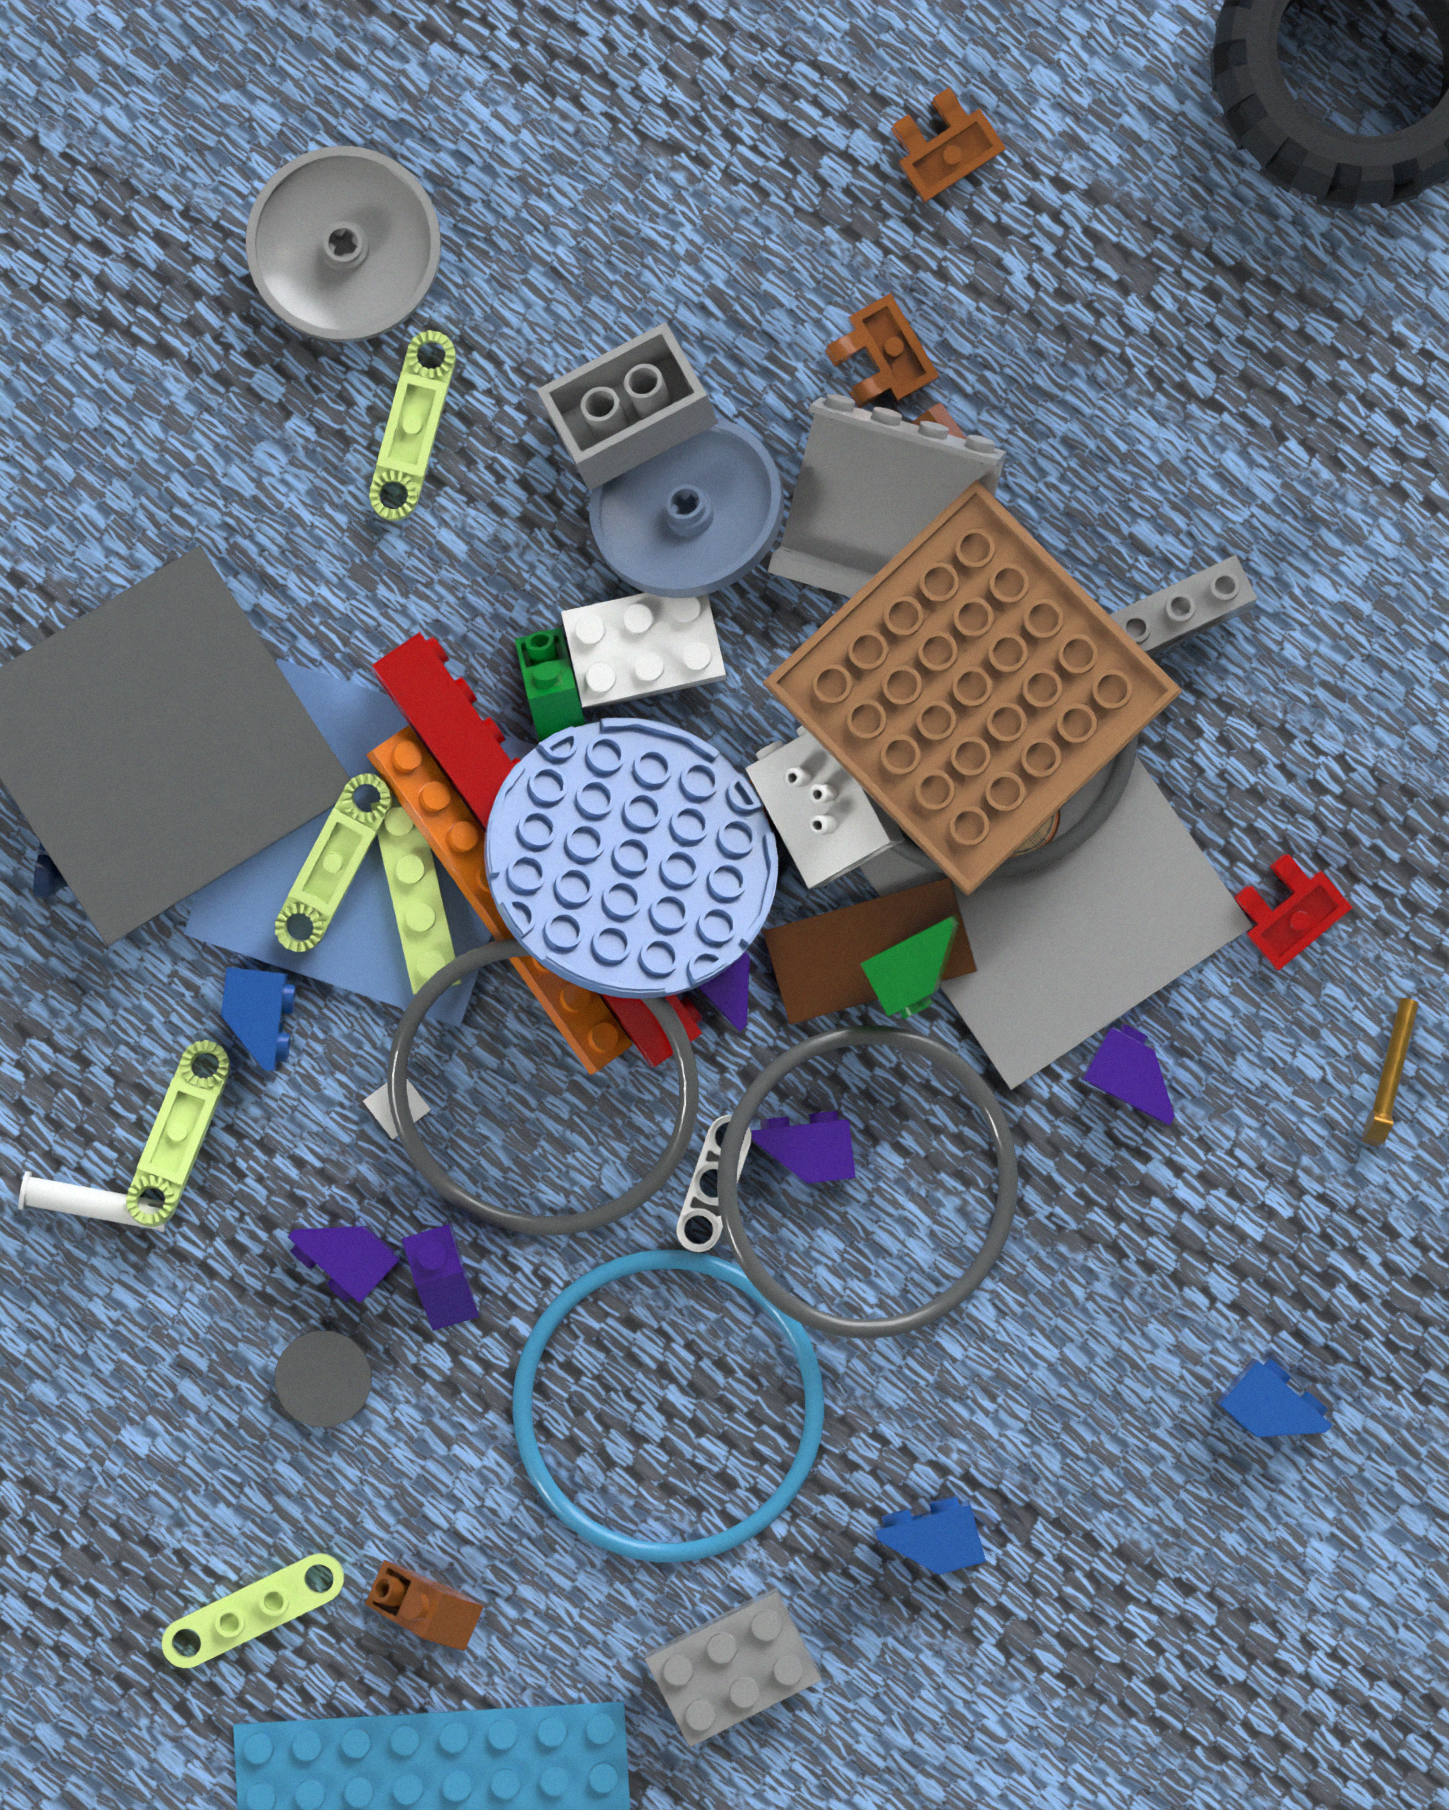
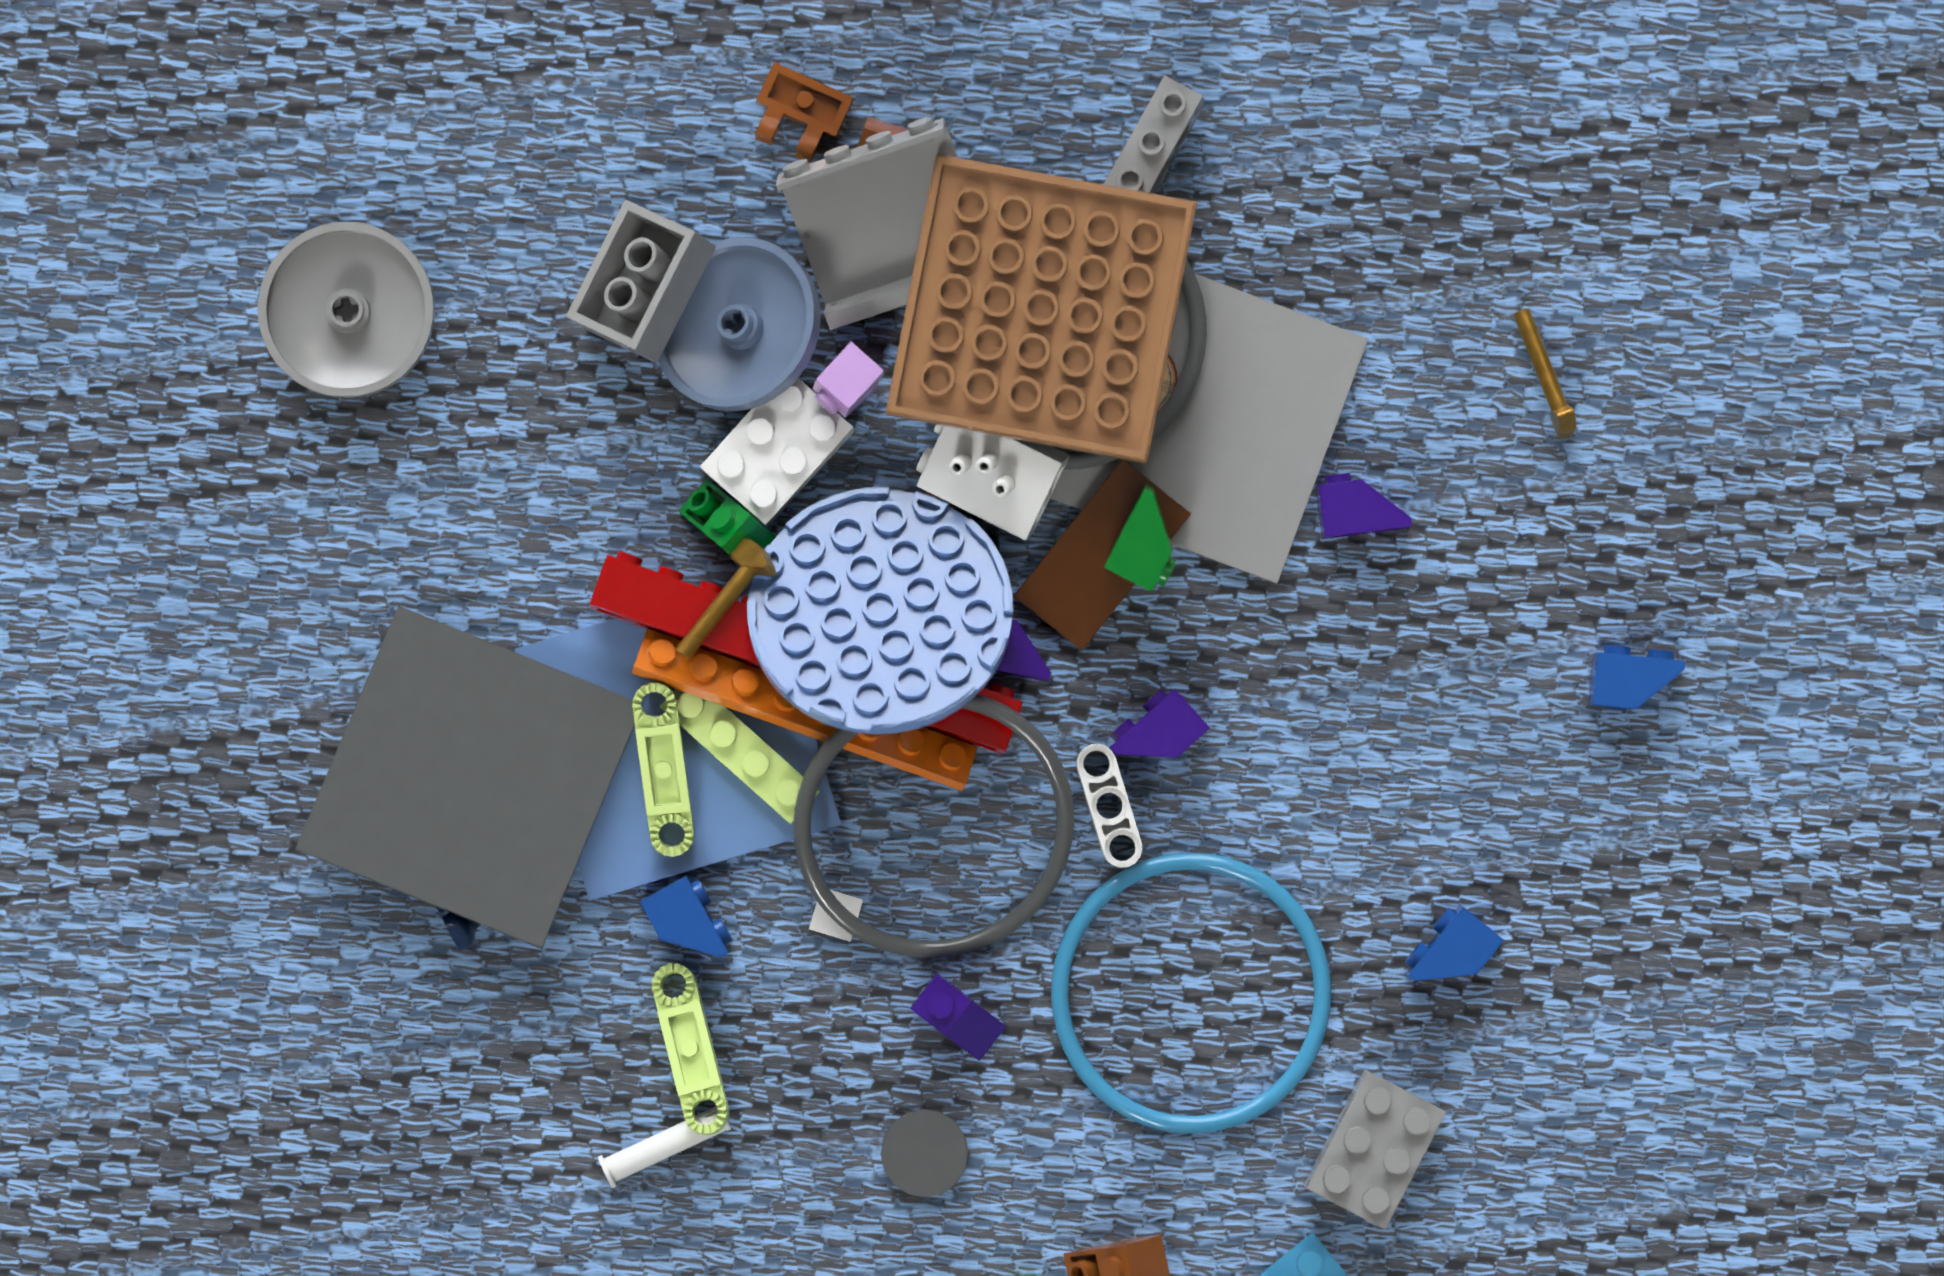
camera: 40 degrees left, 0 degrees up
(349, 1255) = (880, 1049): dark purple slope -> none
(412, 425) = (491, 407): yellowish green plate -> none
(547, 732) = (752, 562): none -> pearl gold piece
(730, 1156) = (1118, 794): dark grey piece -> none
(749, 629) = (847, 381): none -> lavender slope
(1298, 919) = (1397, 310): red plate -> none

